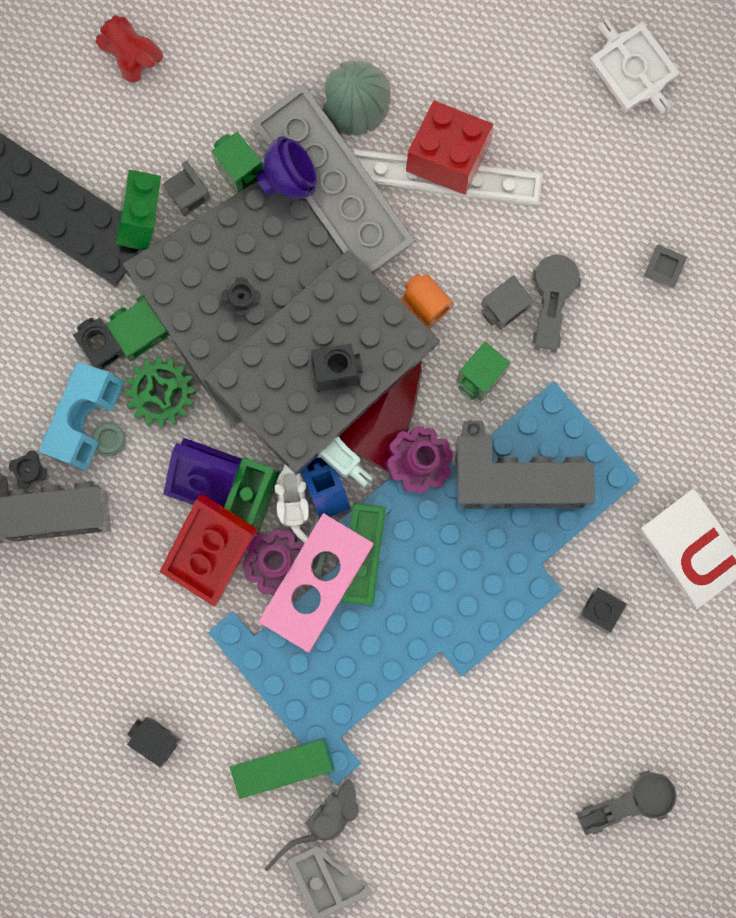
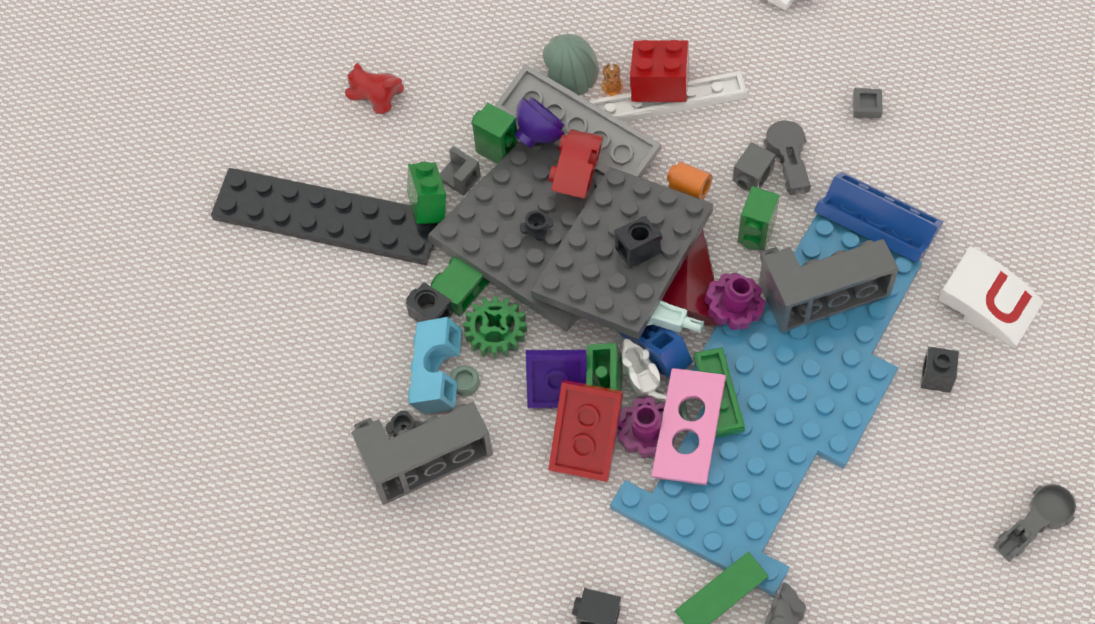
camera: 15 degrees left, 20 degrees down
(311, 236) = (576, 163): none -> red brick
(397, 142) = (612, 82): none -> clear orange pin
(617, 409) = (879, 216): none -> blue slope

